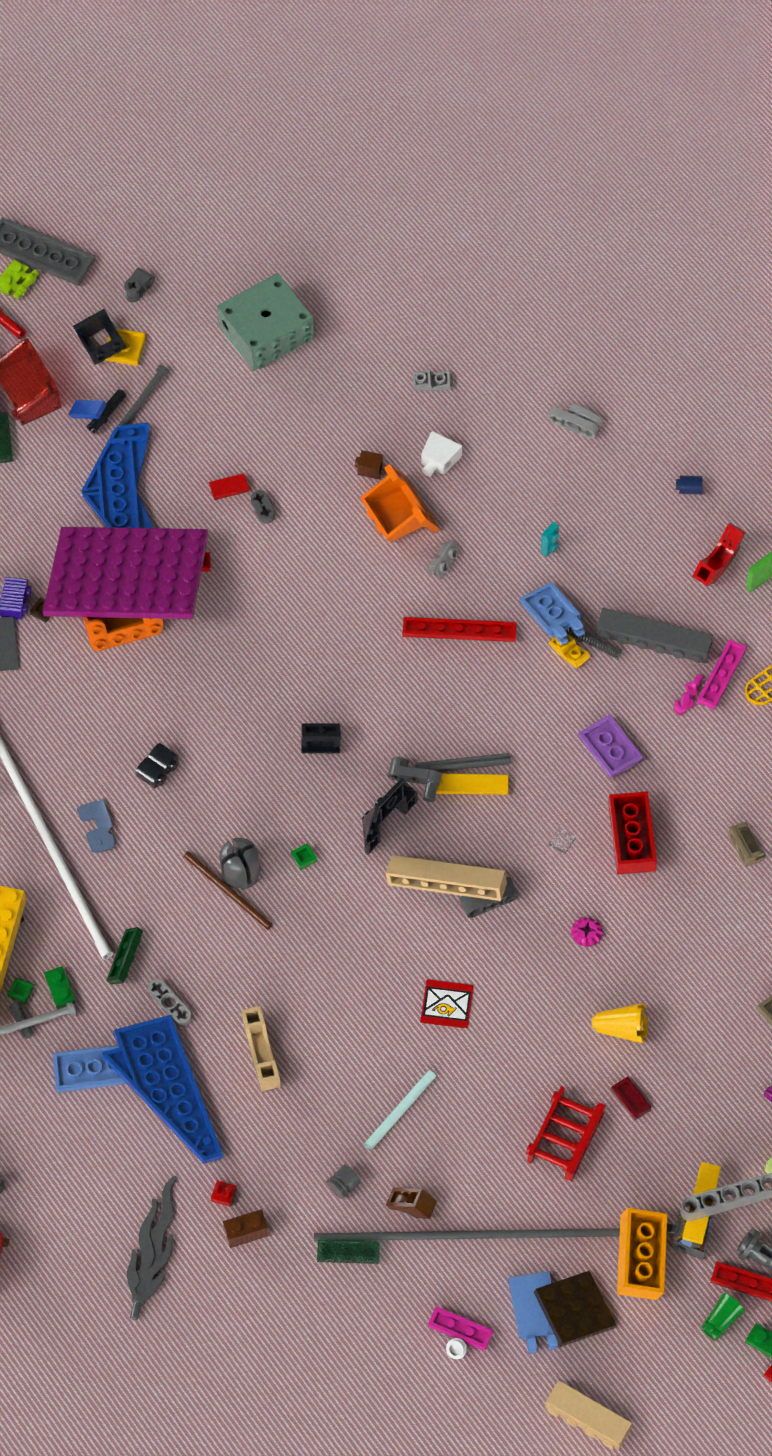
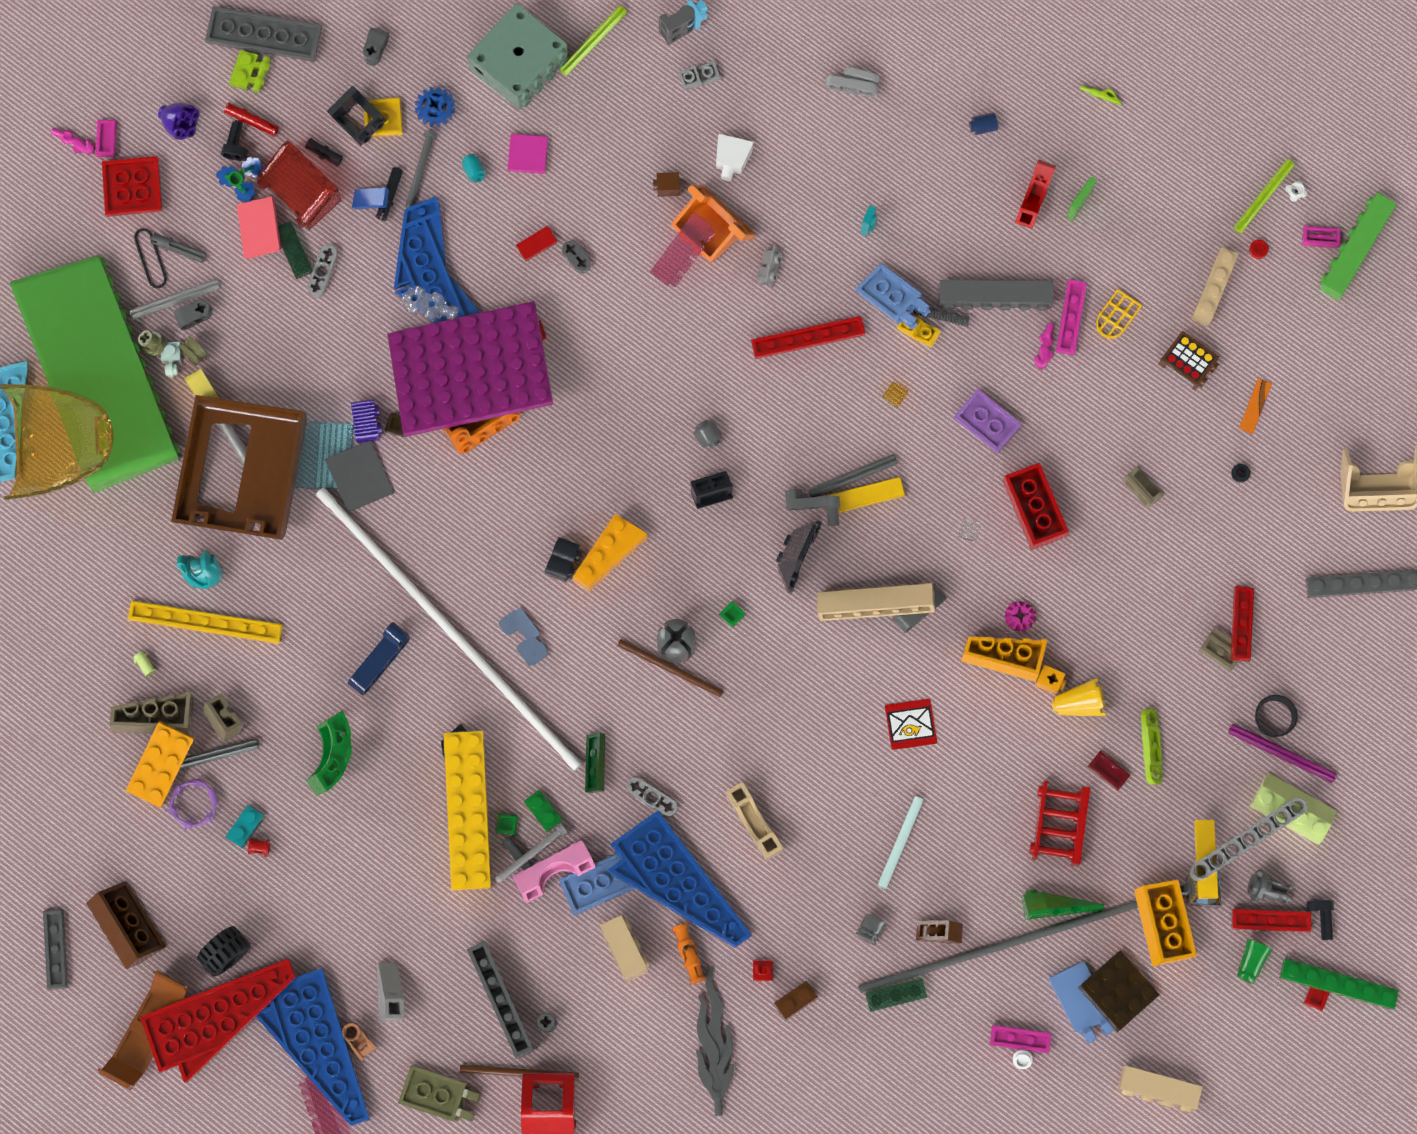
camera: 20 degrees left, 15 degrees up
(21, 454) = (322, 257): none -> light grey beam
(28, 1045) = (572, 859): none -> bright pink arch
(59, 362) = (324, 152): none -> black pin
(93, 1131) = (624, 948): none -> tan brick
(98, 505) = (422, 304): none -> clear brick
(155, 1156) = (689, 956): none -> orange piece
(174, 347) = (440, 100): none -> blue gear
(192, 407) = (473, 168): none -> teal brick
(202, 769) = (612, 547): none -> light orange wedge
(247, 408) = (527, 153): none -> dark pink tile
(334, 689) = (707, 434): none -> dark grey head
(342, 327) = (593, 40): none -> lime axle
(358, 525) = (685, 244): none -> clear pink windscreen
(430, 328) = (683, 21): none -> dark grey hips
(525, 1206) = (1045, 905): none -> green wedge
(527, 701) = (895, 394): none -> clear yellow tile
(559, 961) = (1006, 655): none -> light orange wedge
(598, 990) = (1044, 676): none -> light orange brick
(681, 1085) = (1151, 746): none -> lime plate

